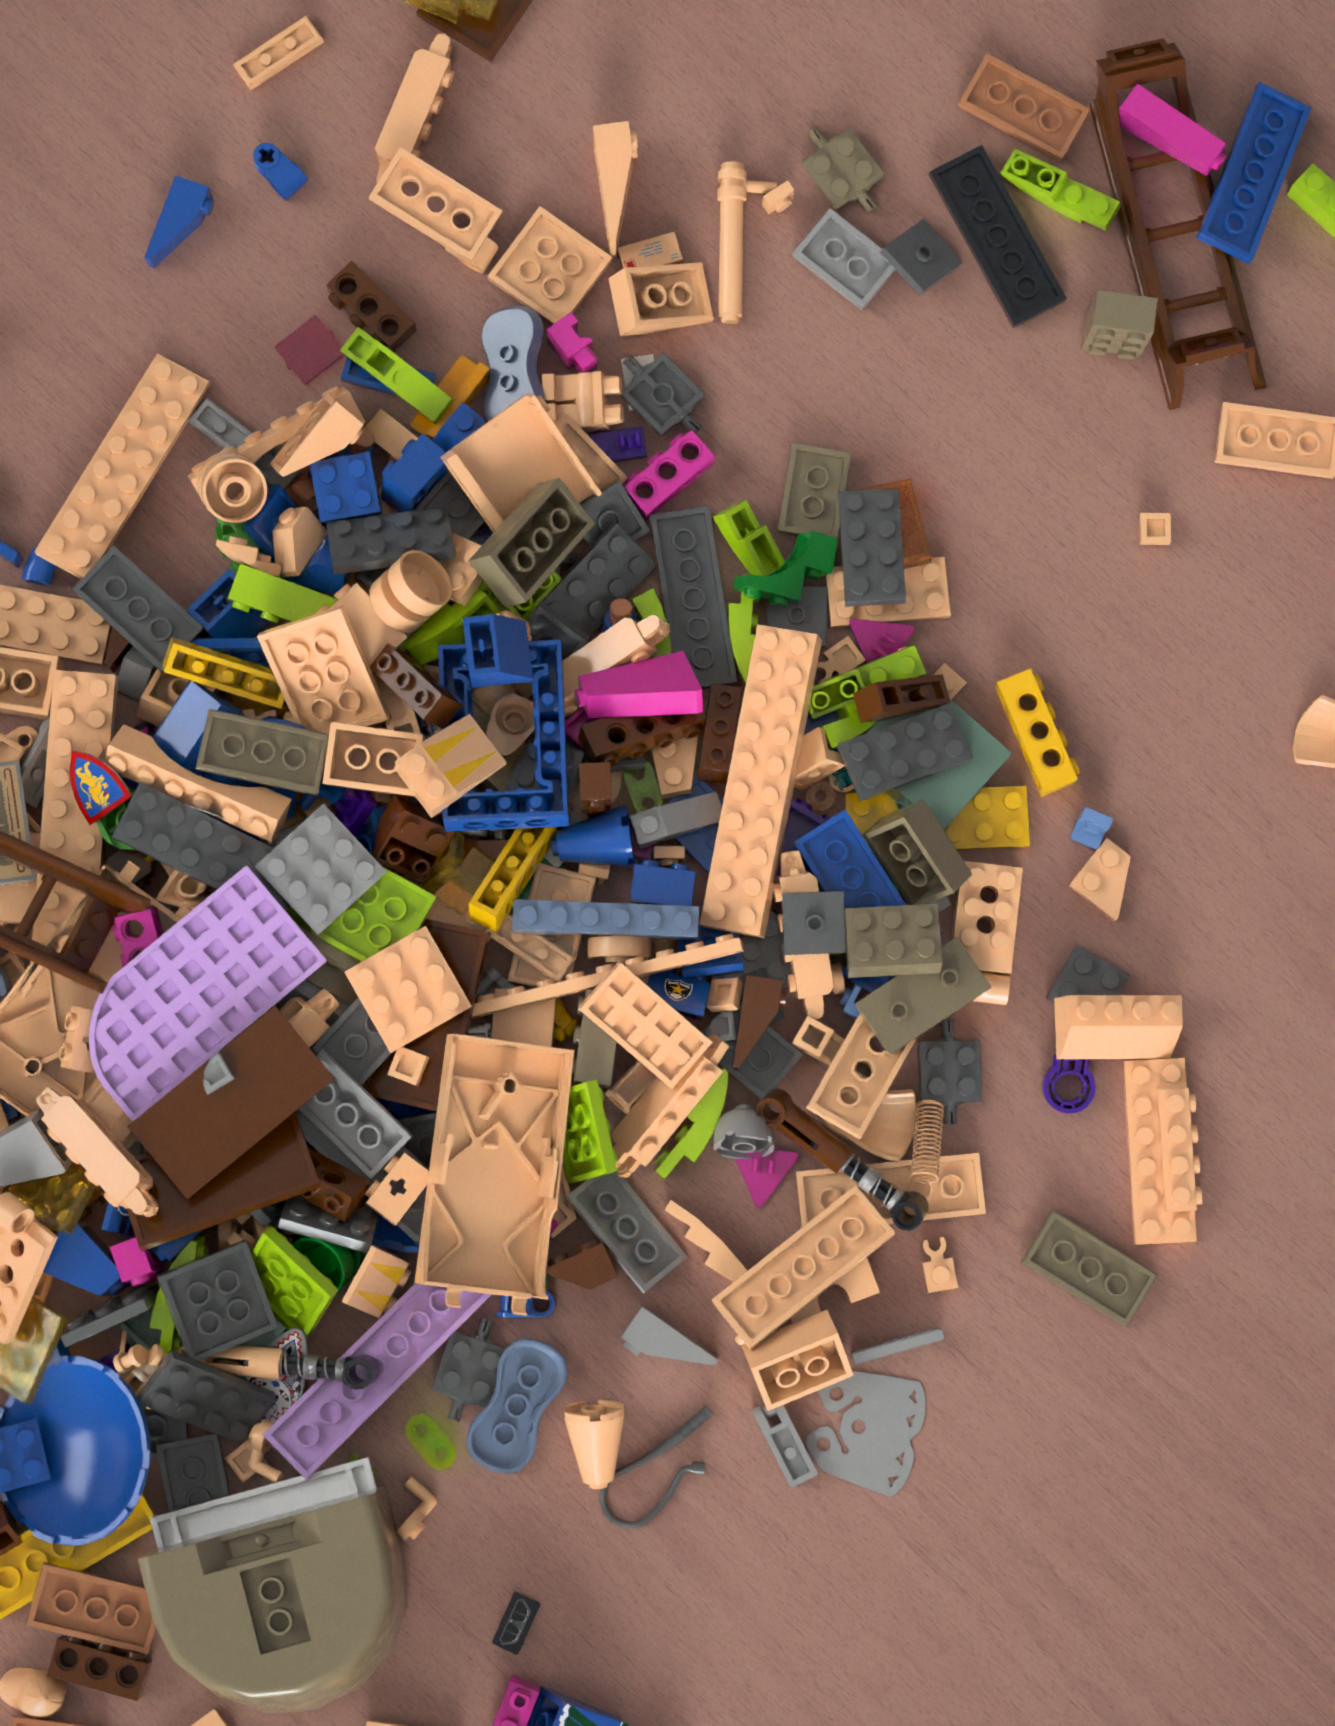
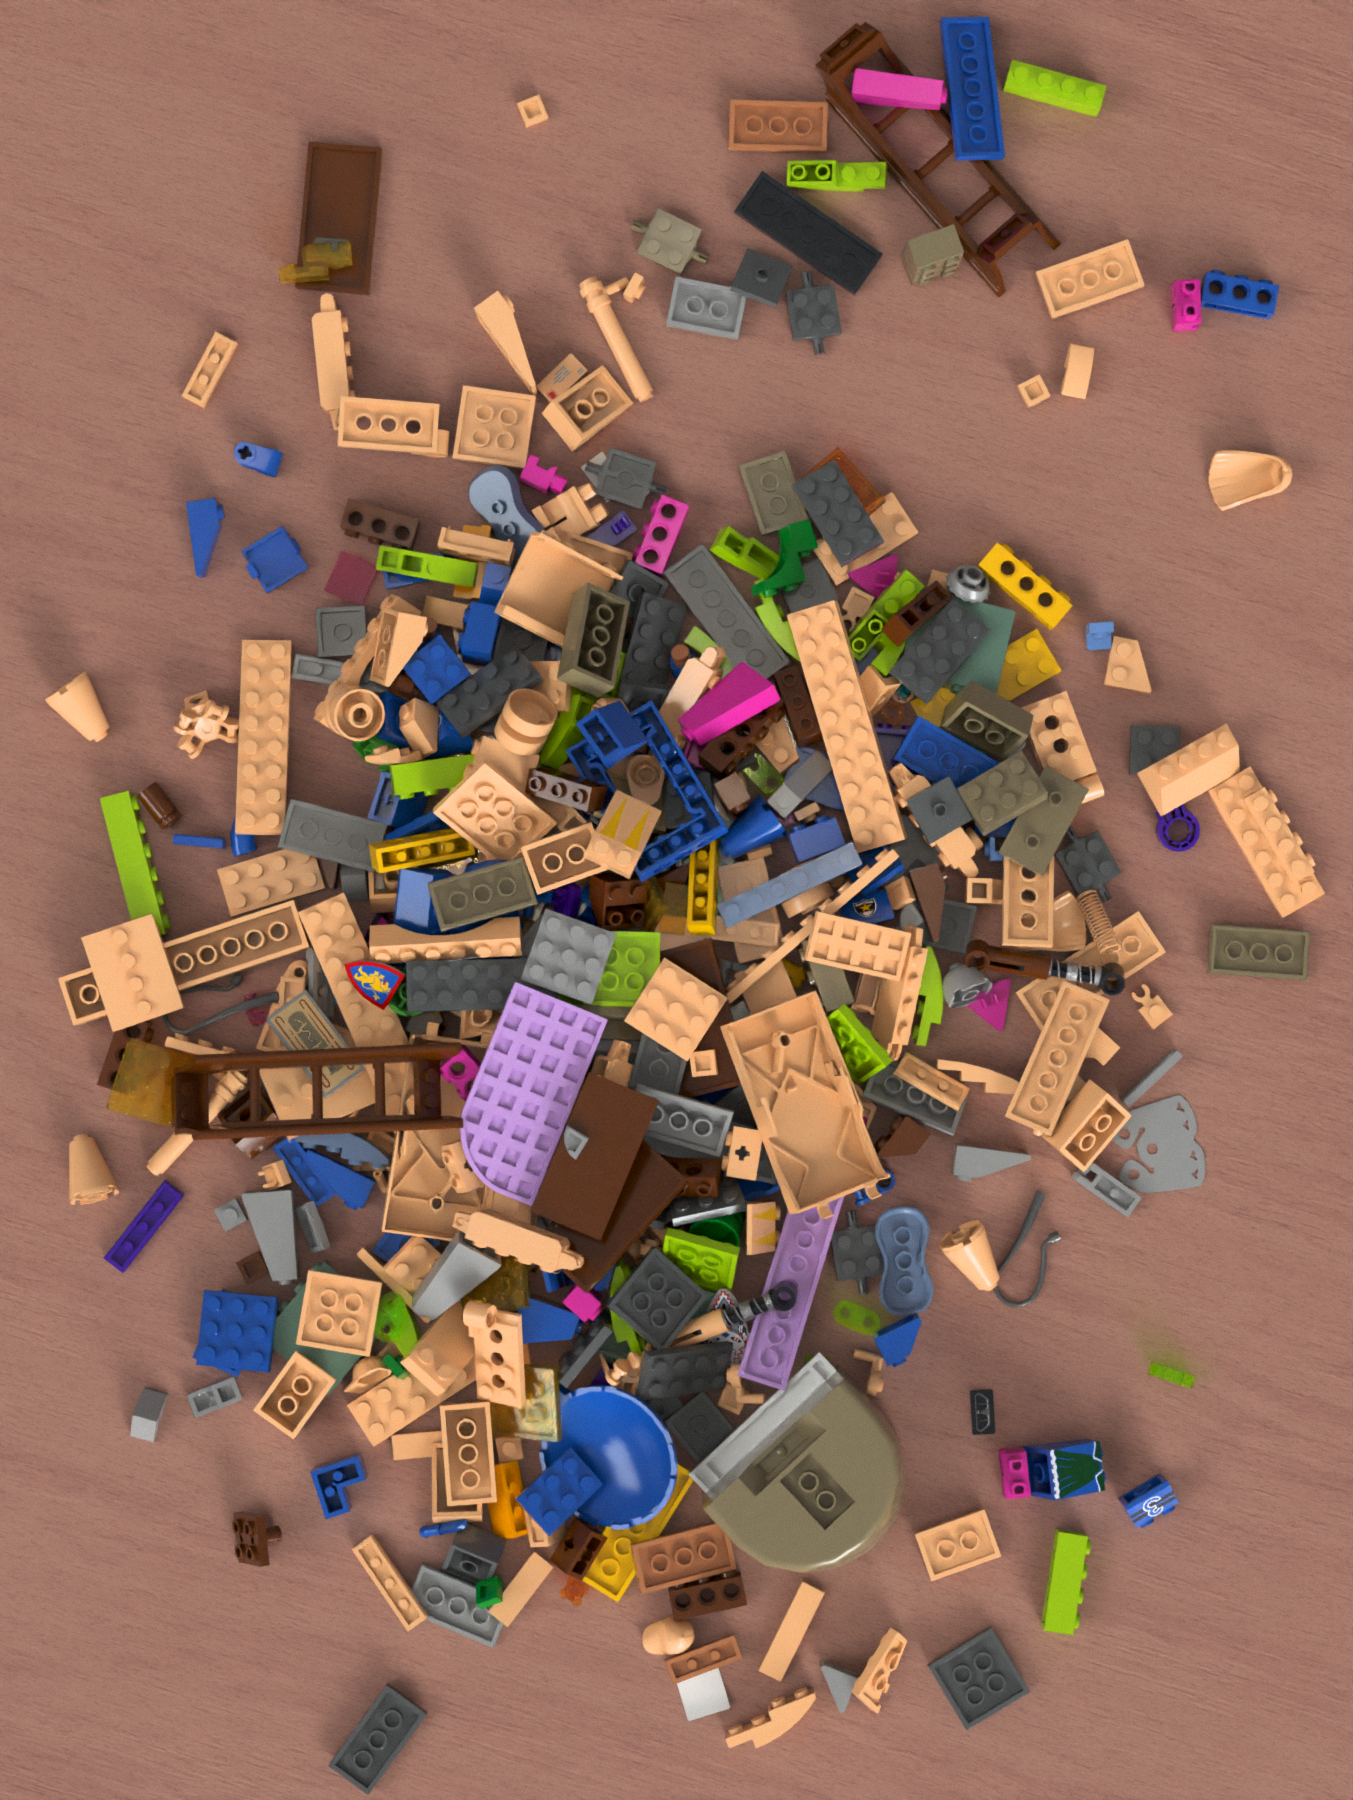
camera: 25 degrees left, 5 degrees up
(68, 423) = (205, 725): none -> light nougat piece
(238, 286) = (274, 559): none -> blue piece
(267, 396) = (339, 630): none -> dark grey plate
(459, 381) = (476, 547): none -> light nougat container
(460, 1489) = (897, 1339): none -> blue slope
(652, 1221) = (931, 1081): none -> light nougat tile
(749, 1692) = (1171, 1374): none -> clear neon green beam
(958, 323) = (813, 312): none -> dark grey plate
(976, 698) = (969, 583): none -> light grey piece
(1214, 531) = (1078, 371): none -> light nougat slope

